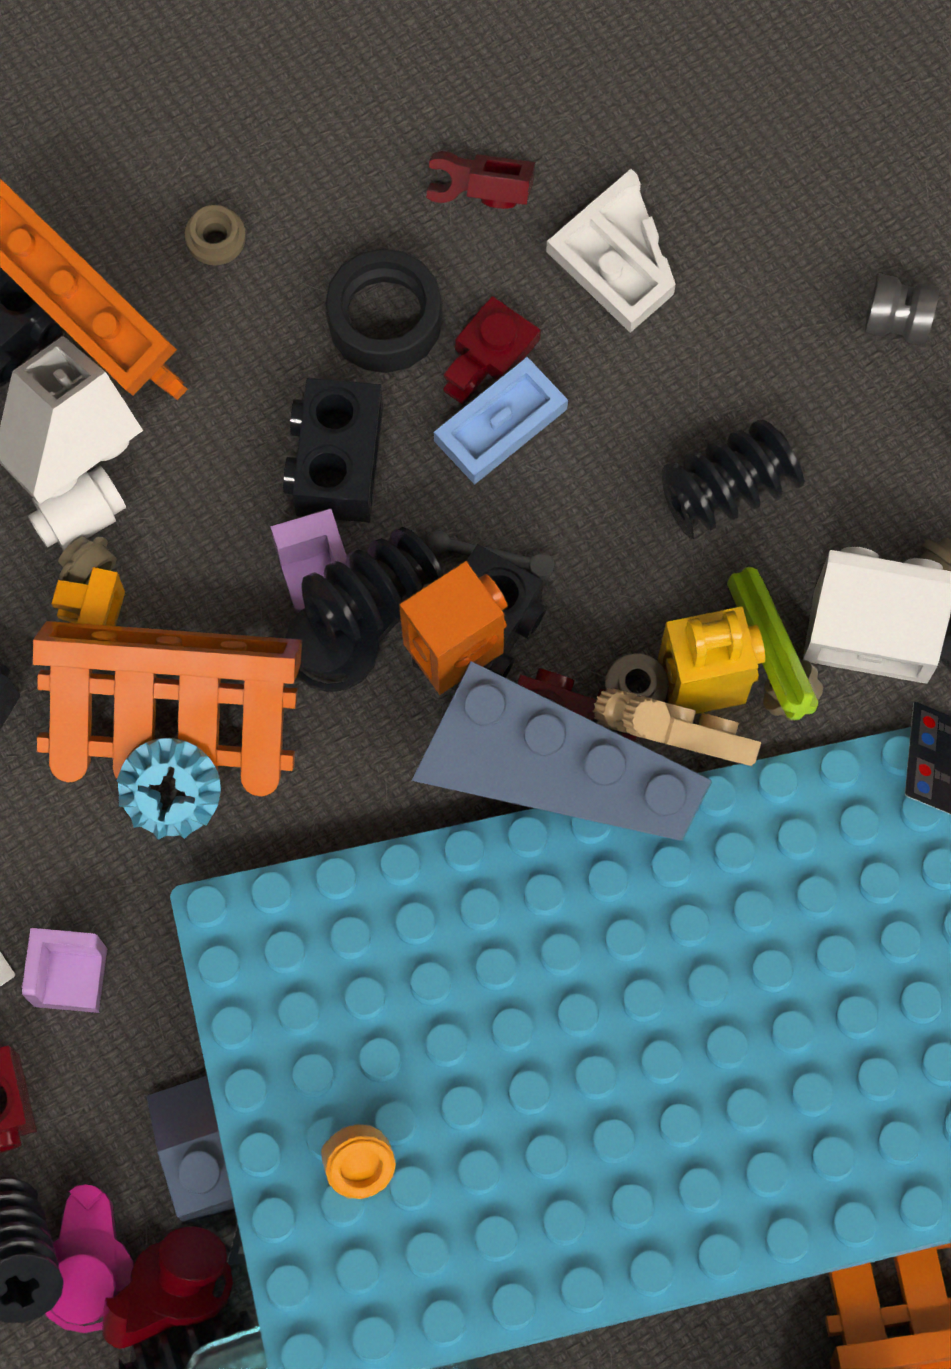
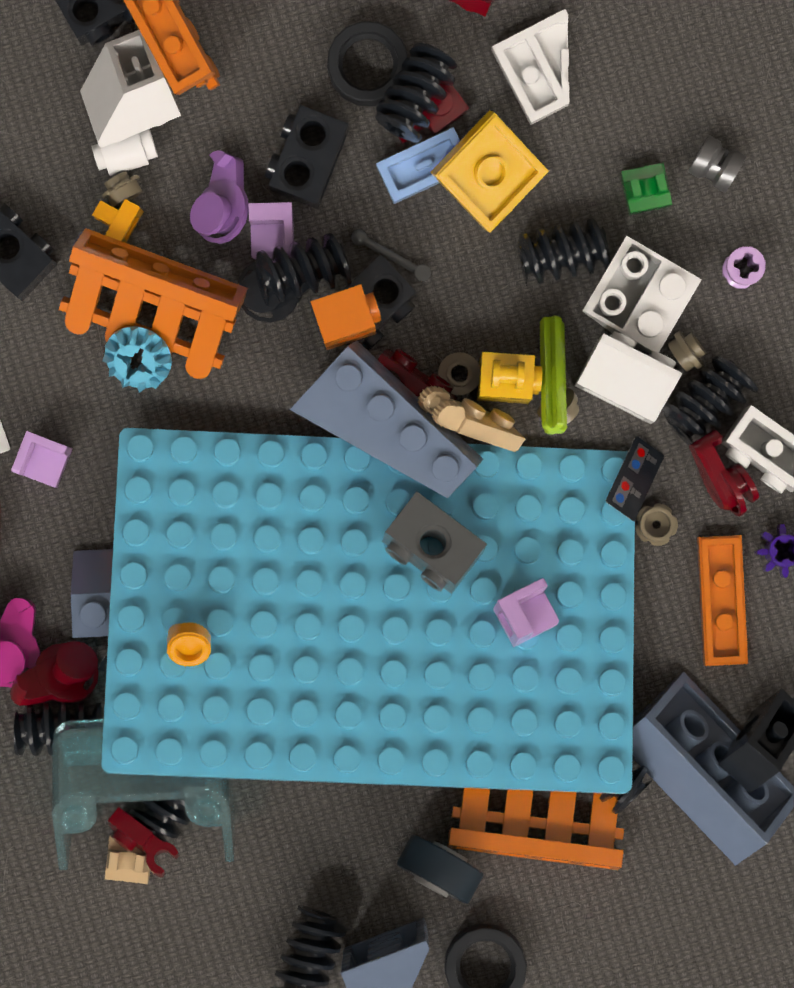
camera: 10 degrees right, 15 degrees up
(238, 540) = (223, 203): none -> medium lavender piece
(464, 313) = (414, 90): none -> black piece
(594, 400) = (489, 171): none -> yellow tile
(661, 885) = (423, 520): none -> dark grey brick
(815, 371) = (646, 188): none -> green tile
(846, 979) = (526, 613): none -> lavender panel
(859, 496) = (641, 295): none -> white slope

